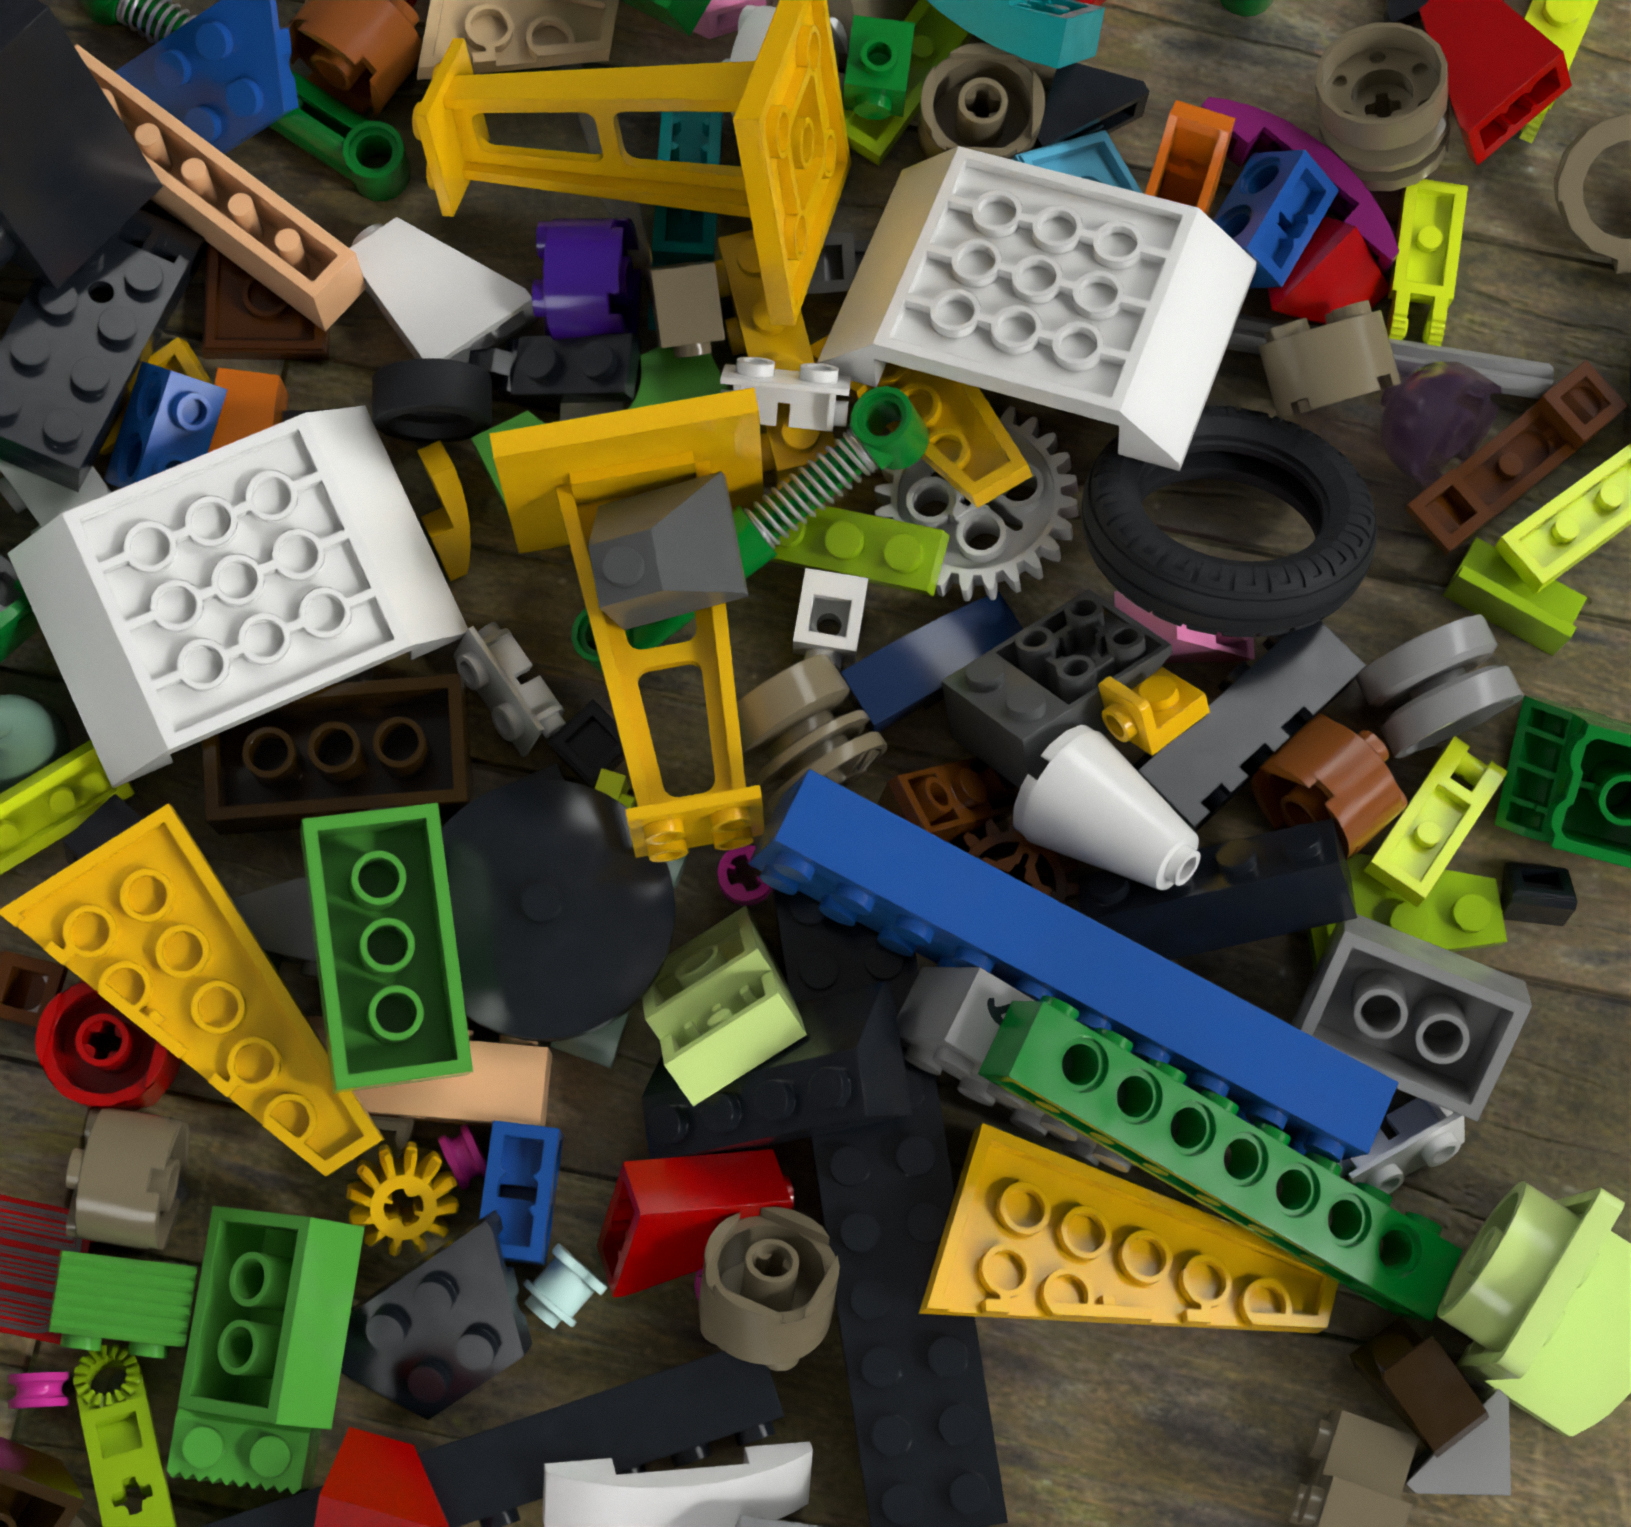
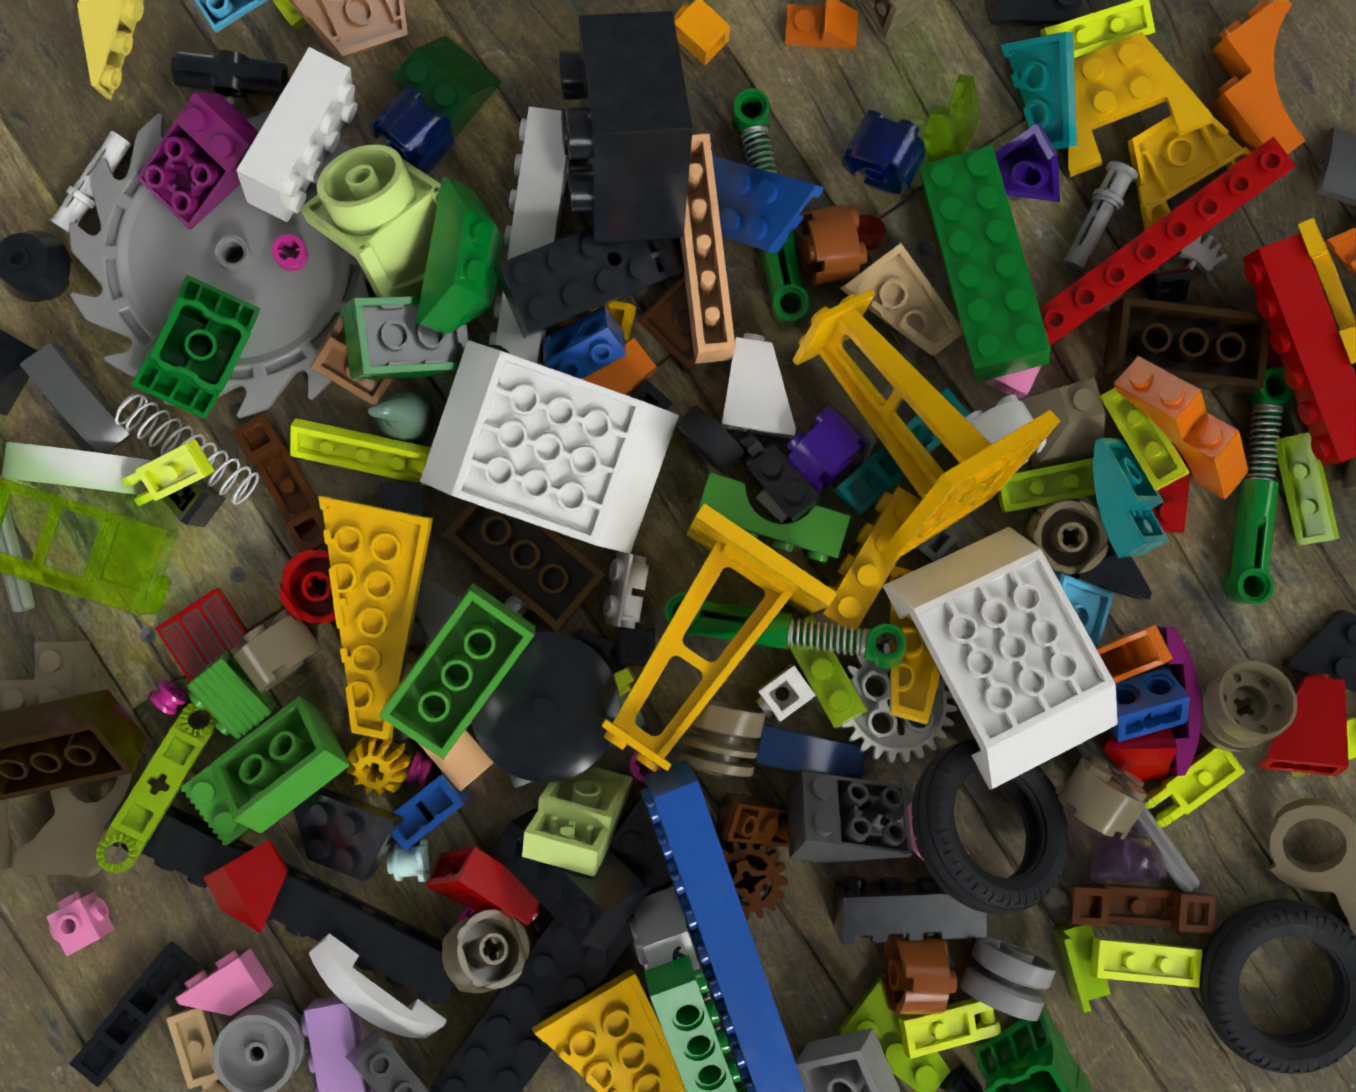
camera: 45 degrees right, 10 degrees up
(450, 524) = (668, 494): yellow slope -> none
(666, 552) = (736, 617): dark grey slope -> none
(685, 306) = (855, 504): dark tan arch -> none
(808, 391) = (869, 598): white hinge -> none
(878, 67) = (1043, 476): green brick -> none
(1104, 813) = (811, 904): white cone -> none
(1153, 710) = (875, 875): yellow bracket -> none
(1235, 895) = (825, 975): black brick -> none

